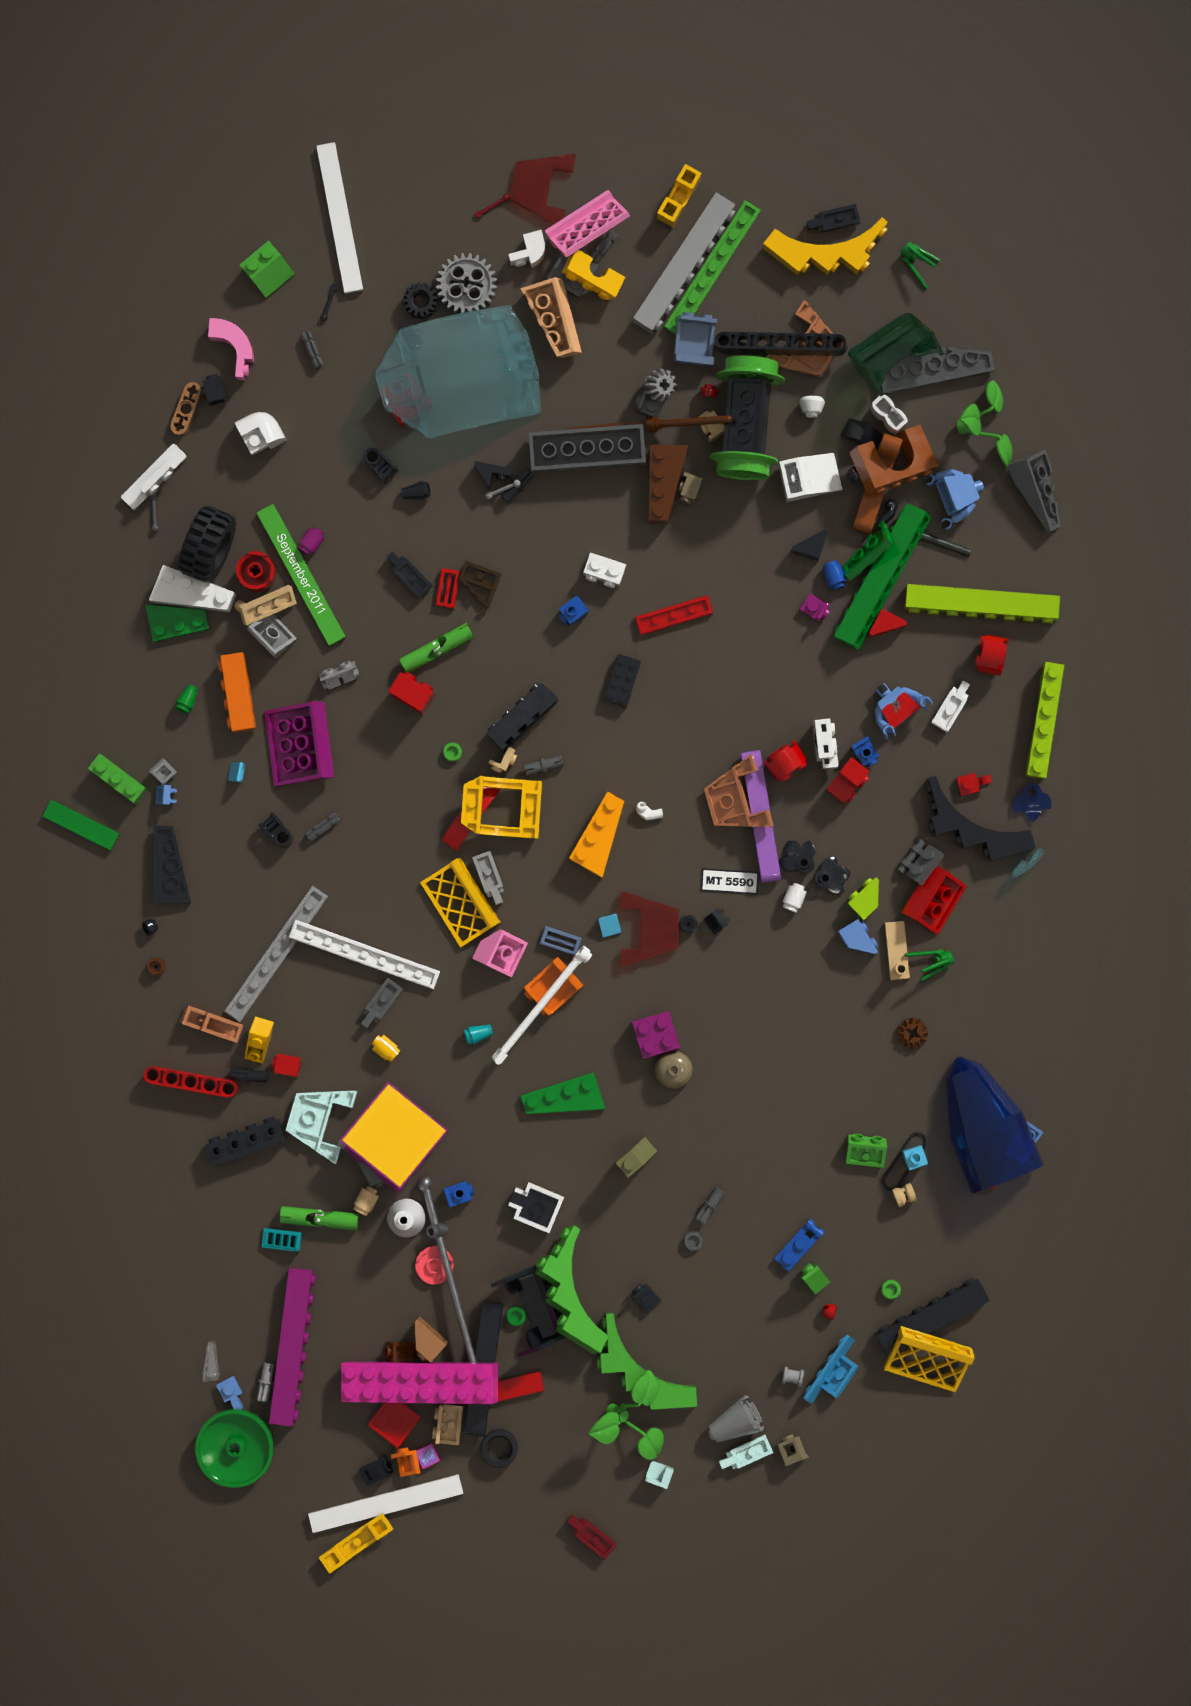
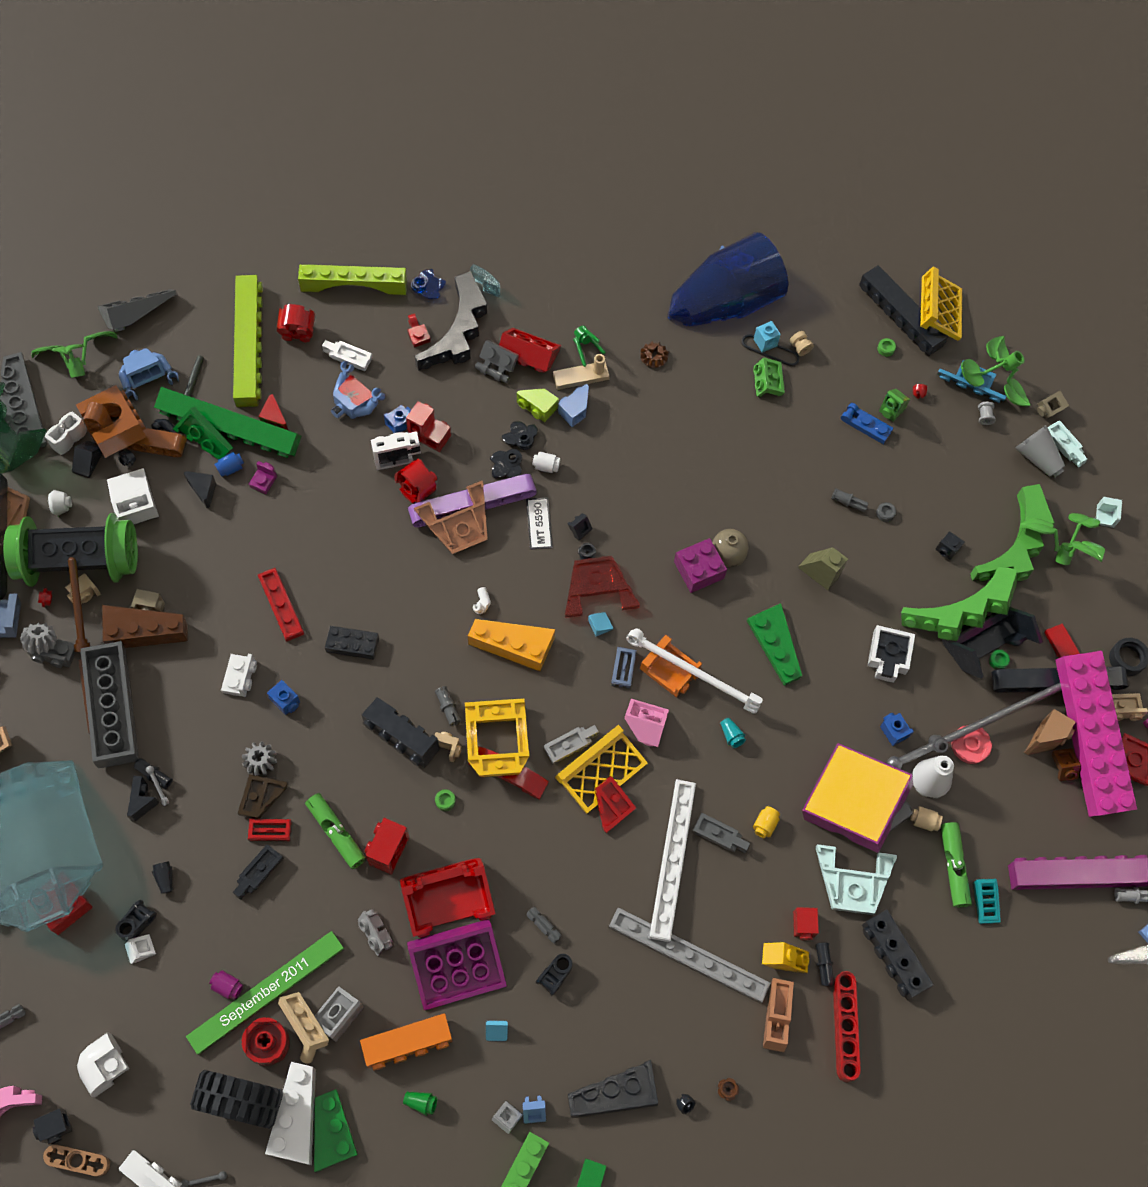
camera: 105 degrees left, 20 degrees down
(356, 467) = (139, 948): none -> white slope
(362, 741) = (446, 895): none -> red windscreen
(424, 906) = (612, 803): none -> red wing
(511, 589) = (251, 759): none -> light grey gear
(814, 1415) = (998, 351): none -> bright green plant

